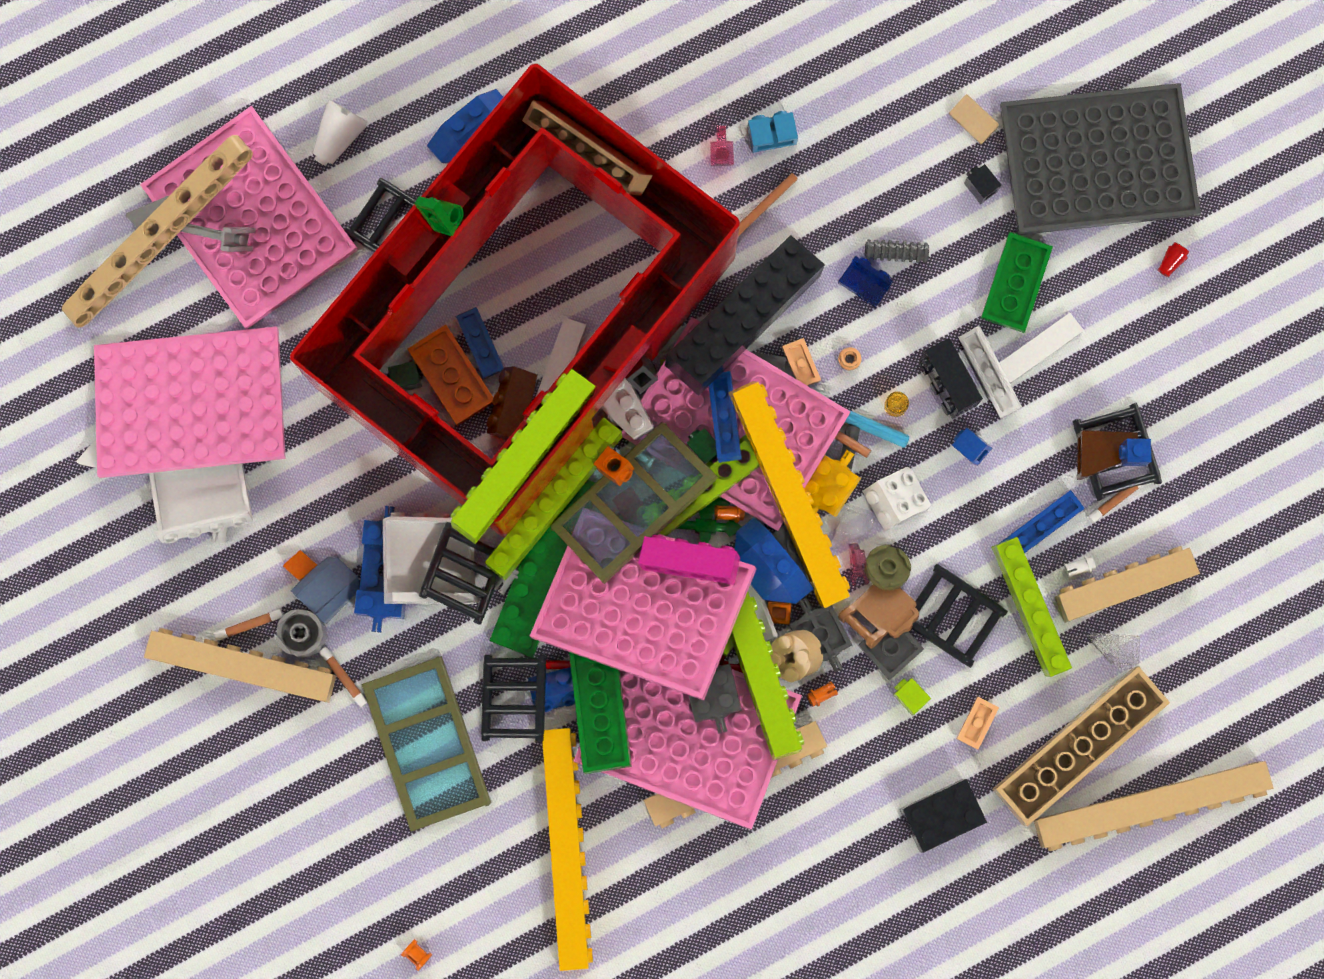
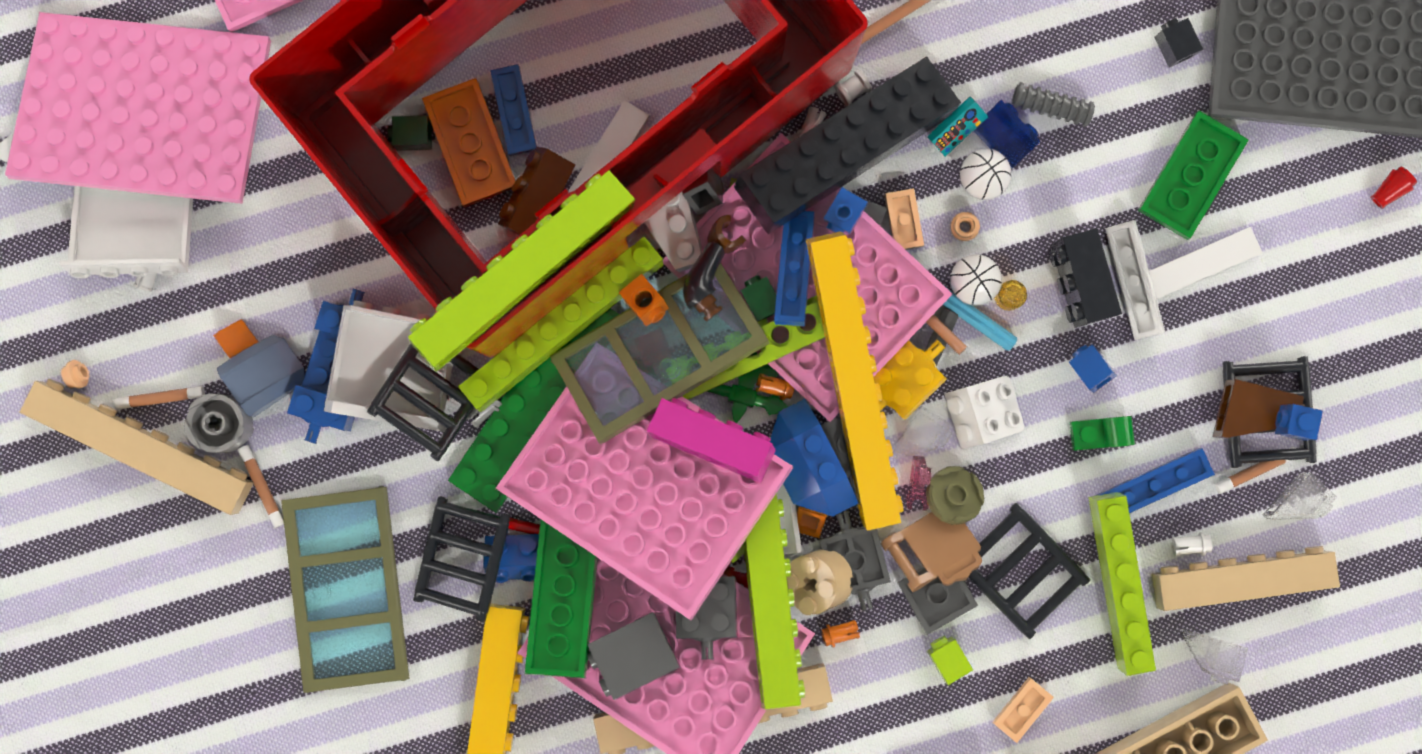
camera: 10 degrees right, 5 degrees up
(179, 620) = (75, 374): none -> light nougat plate
(653, 444) = (698, 284): none -> piece
(664, 742) = (632, 656): none -> dark grey brick
(713, 301) = (812, 120): none -> white pin
(739, 270) = (853, 87): none -> white bush
(754, 366) = (845, 212): none -> blue brick
(826, 283) = (957, 126): none -> teal tile
(856, 315) = (985, 174): none -> white piece
(866, 397) = (976, 279): none -> white piece
(991, 495) = (1102, 433): none -> green plate
(1157, 514) = (1302, 500): none -> clear slope

